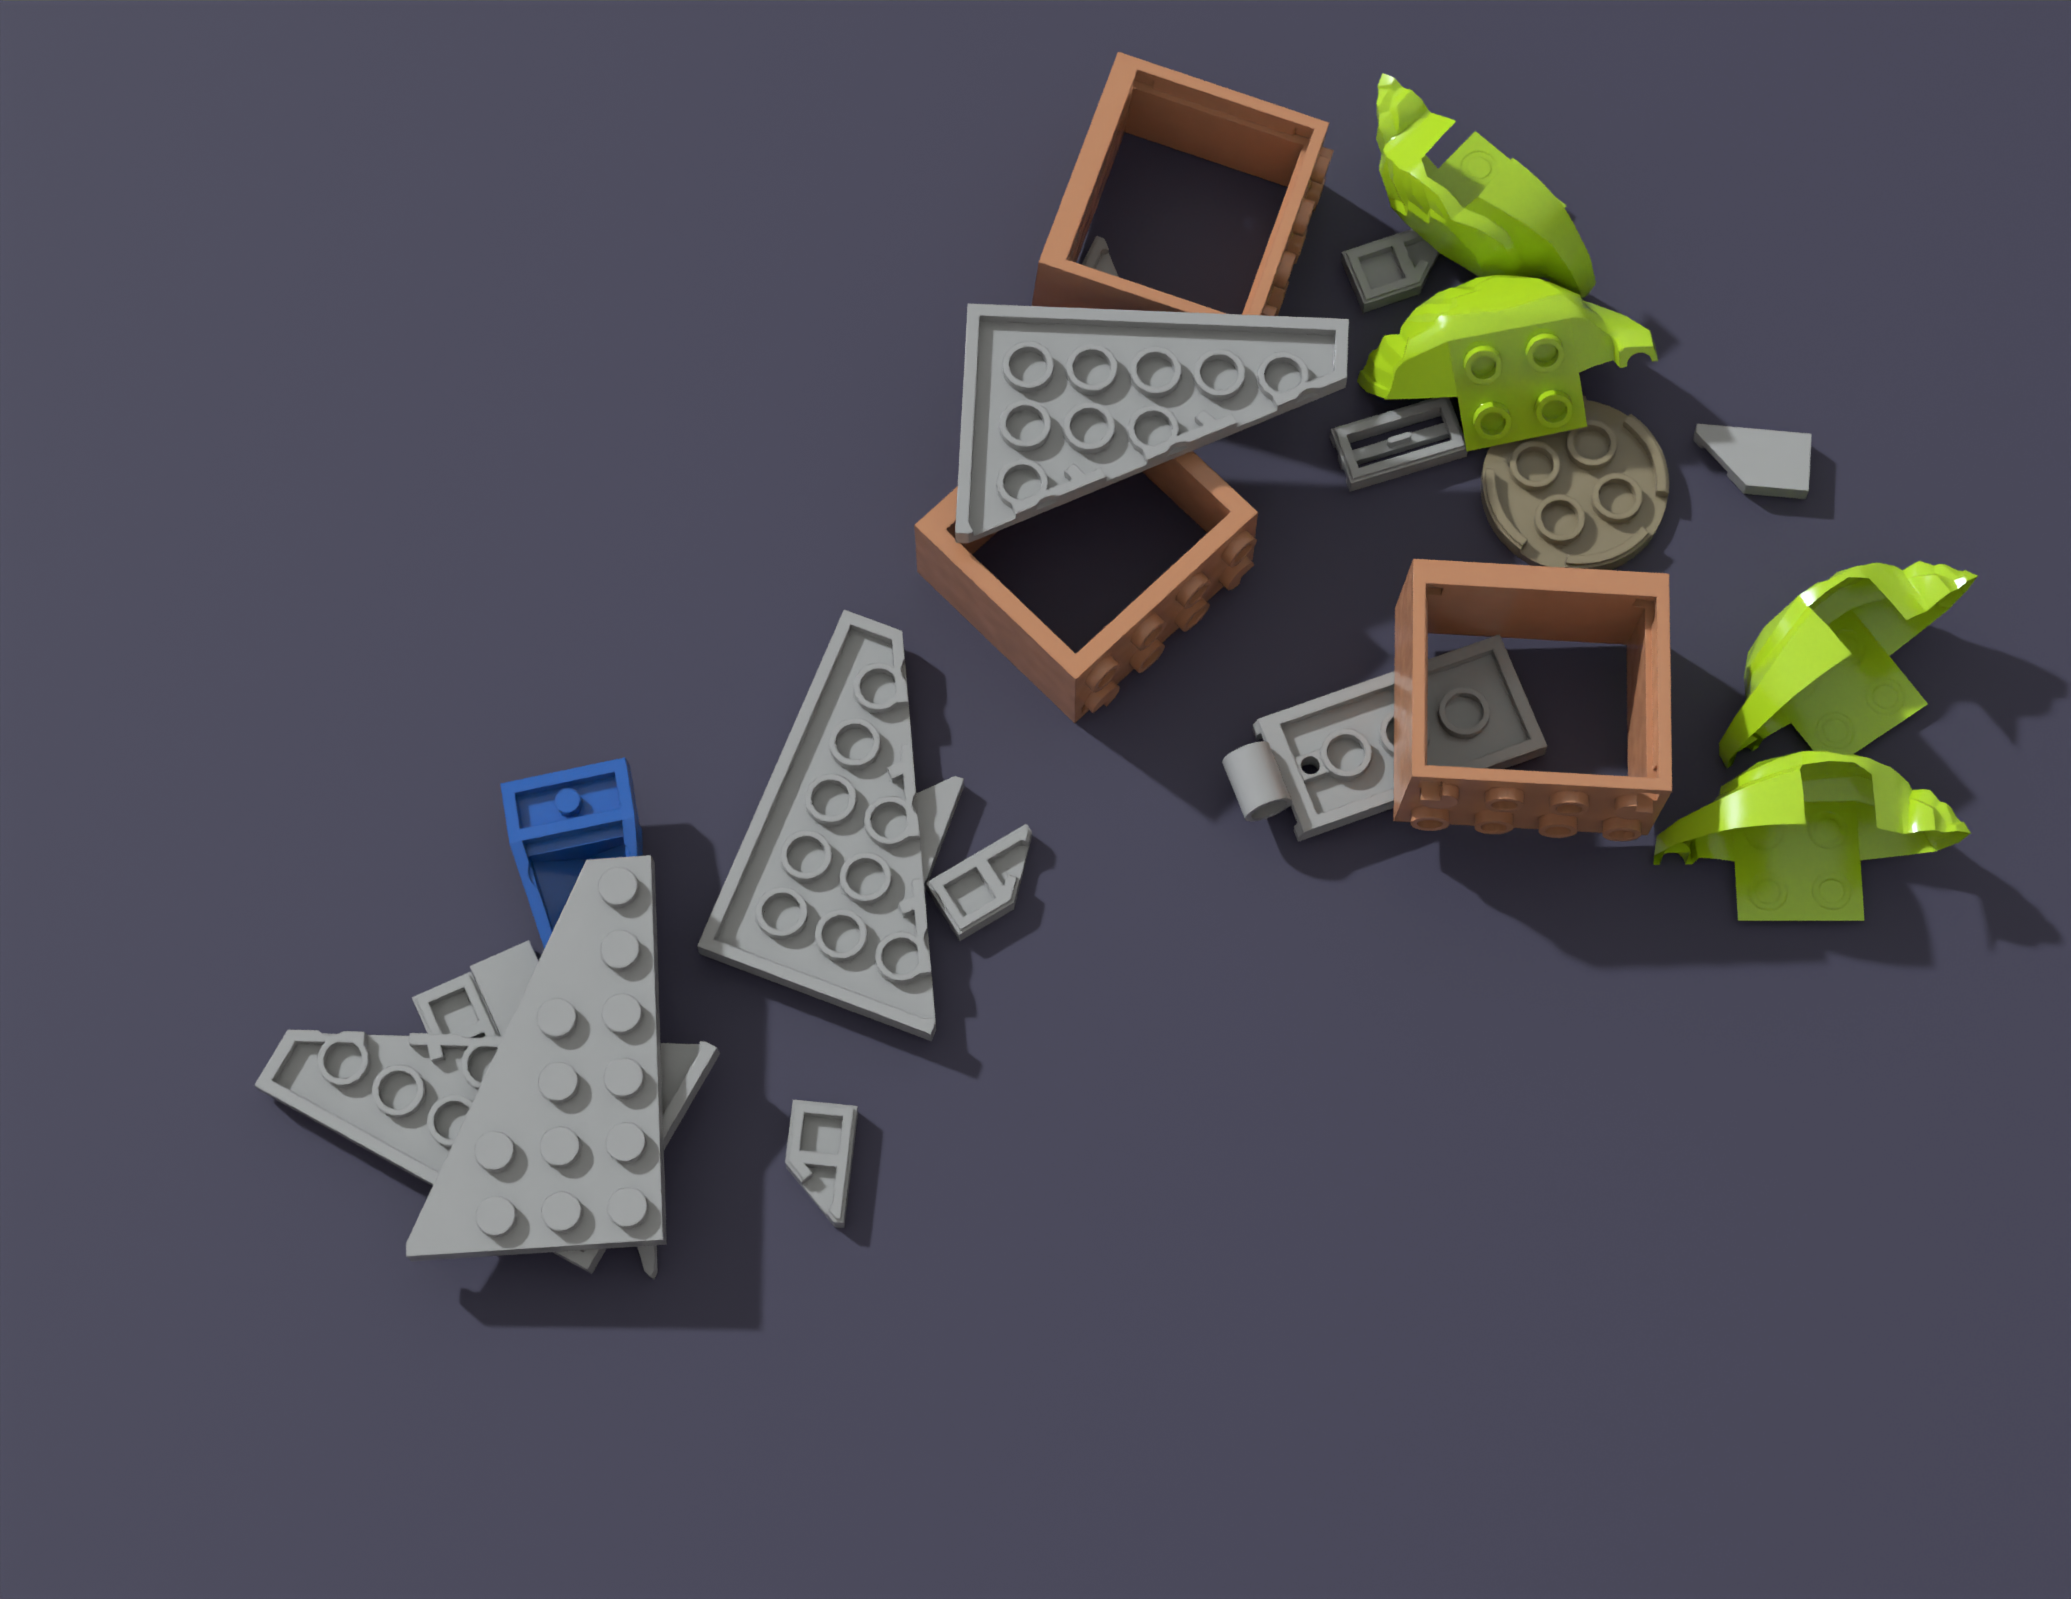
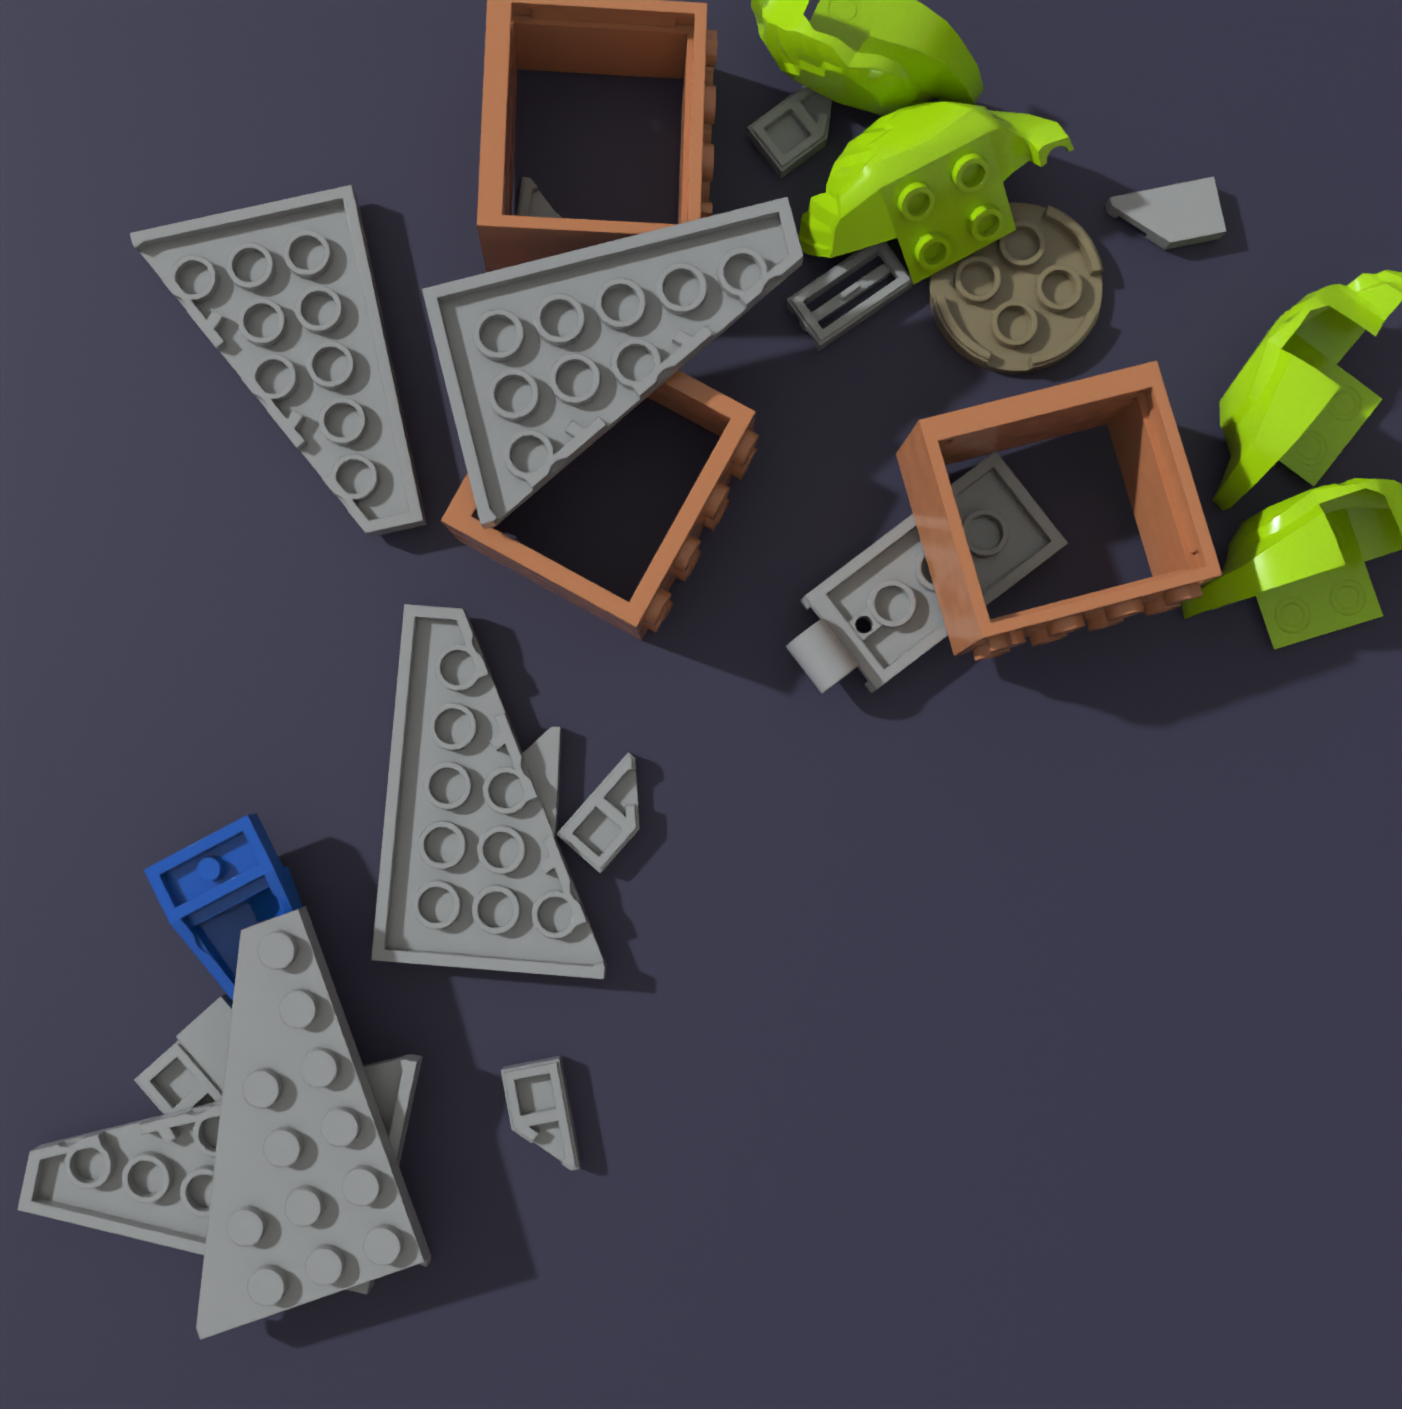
camera: 15 degrees left, 15 degrees up
(826, 318) = (302, 324): none -> light grey wing

